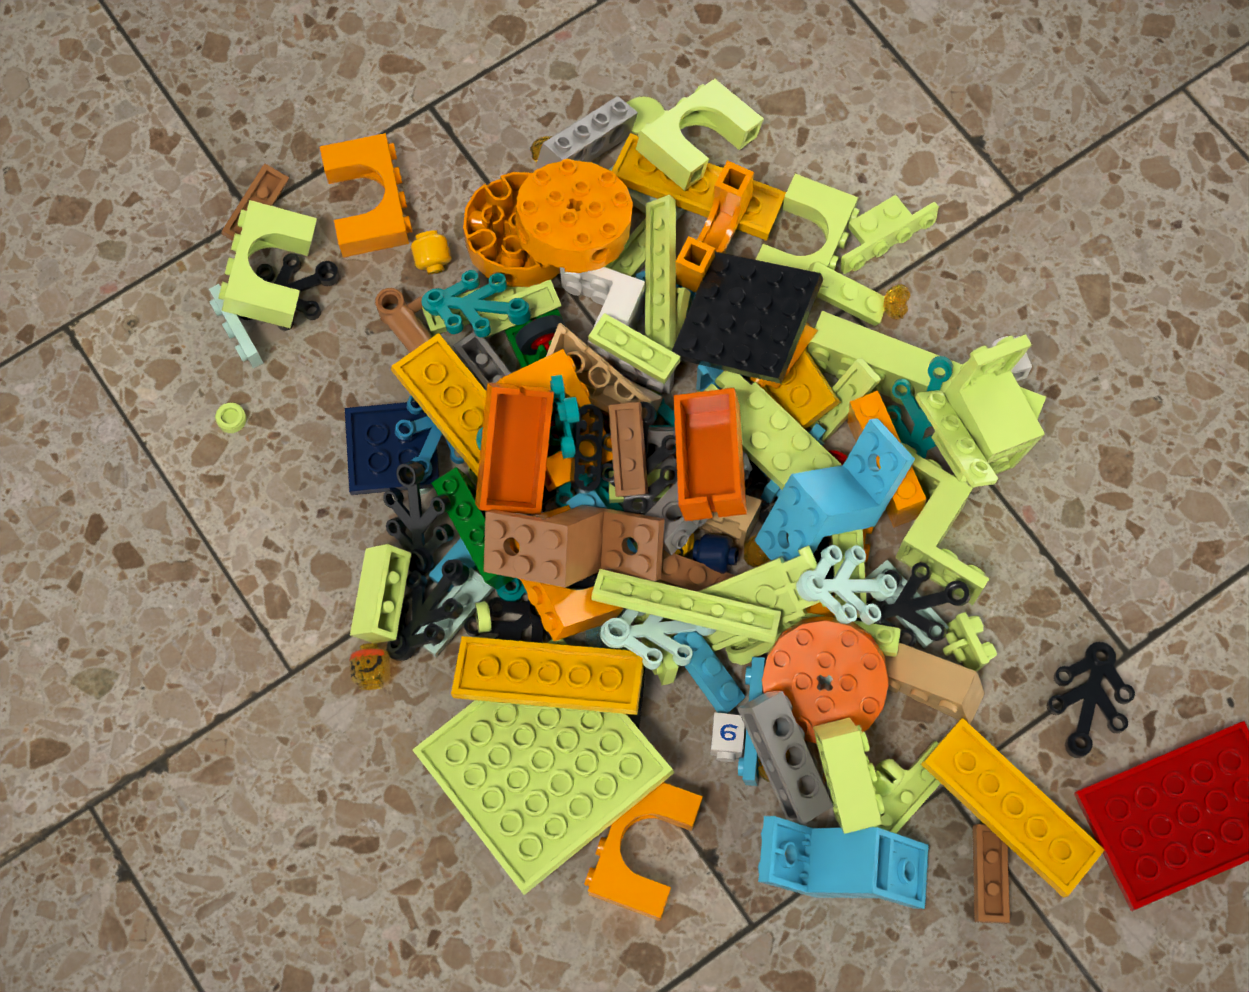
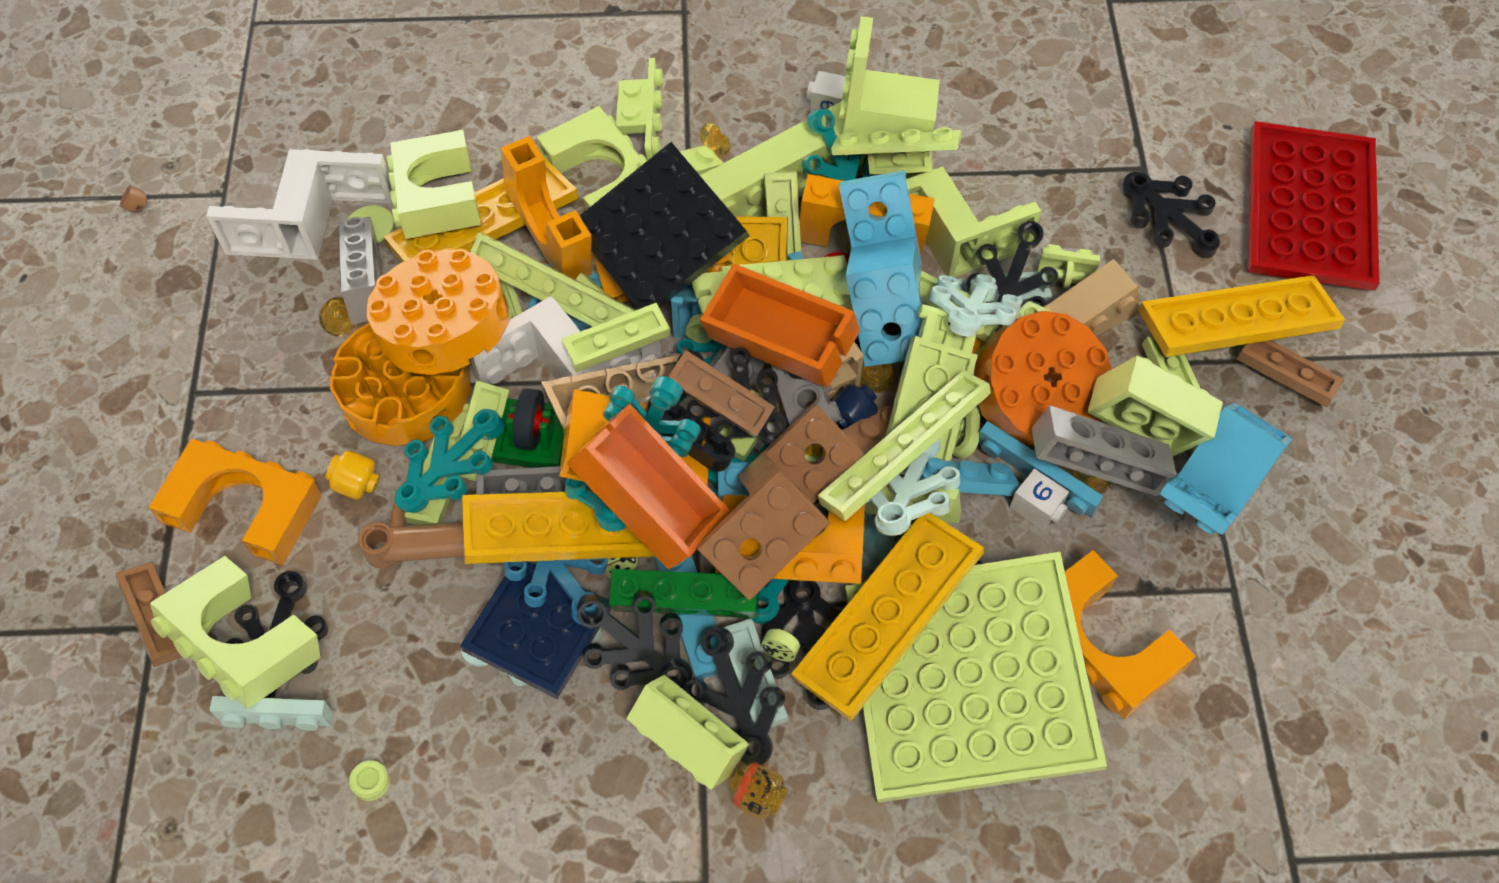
camera: 60 degrees left, 10 degrees down
(617, 59) = (302, 204): none -> white bracket

